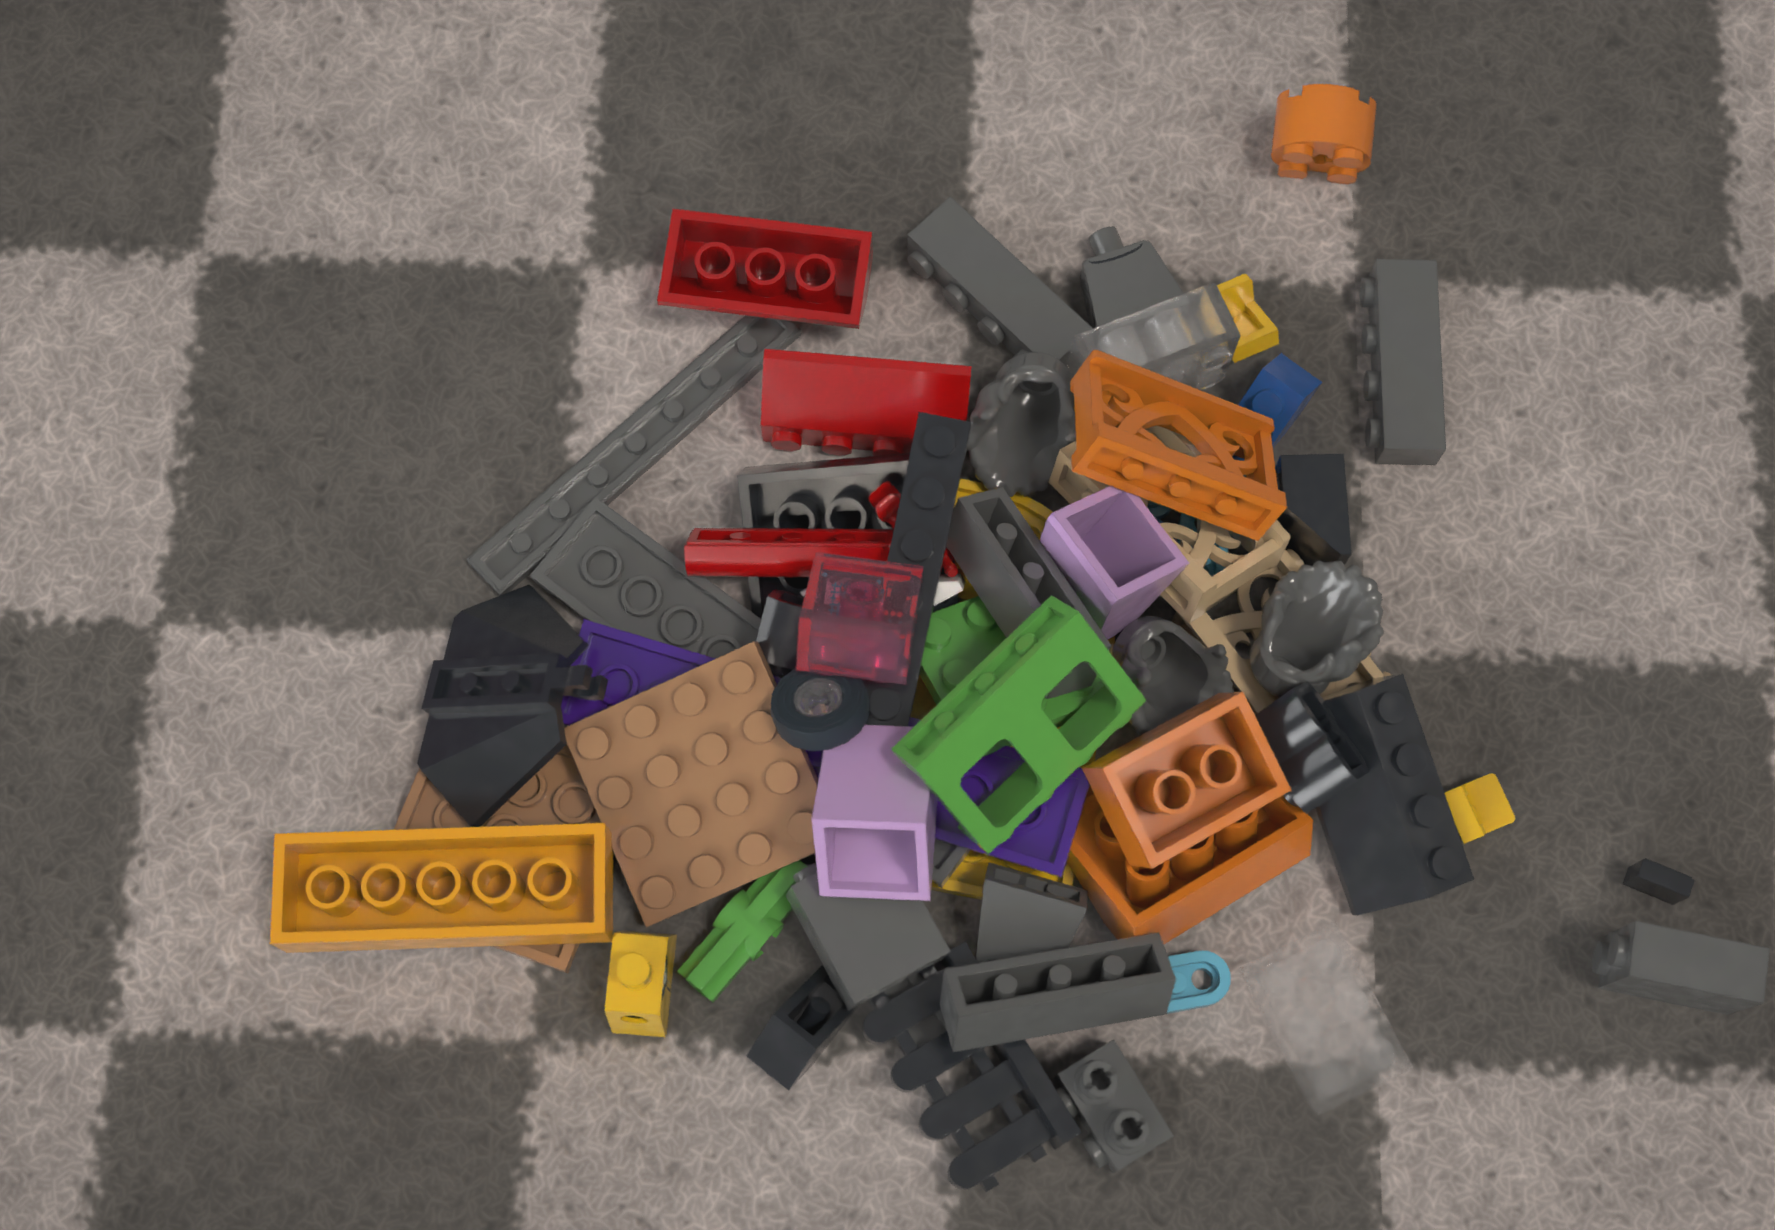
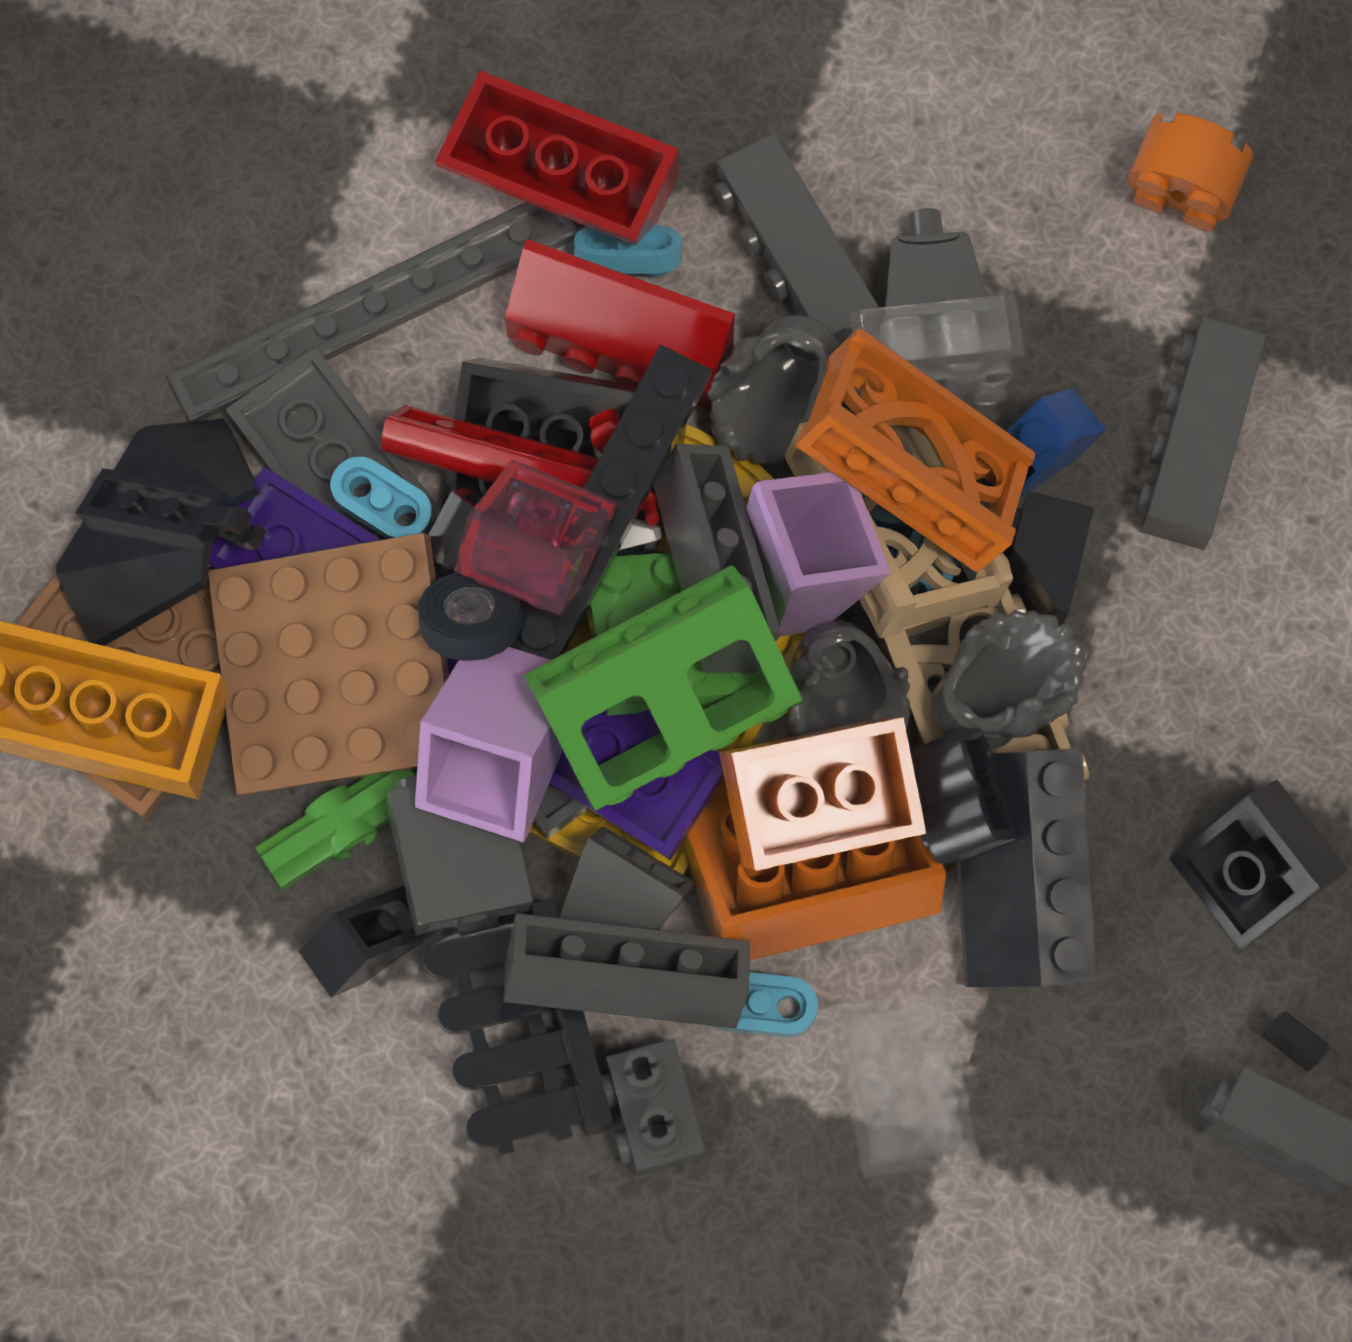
camera: 15 degrees right, 0 degrees up
(640, 982) = (214, 847): yellow torso -> none
(703, 622) = (385, 502): none -> medium azure plate
(876, 333) = (653, 255): none -> medium azure plate
(1253, 324) = (1045, 341): yellow bracket -> none
(1479, 807) = (1128, 913): yellow bracket -> none
(1576, 732) = (1258, 863): none -> black slope

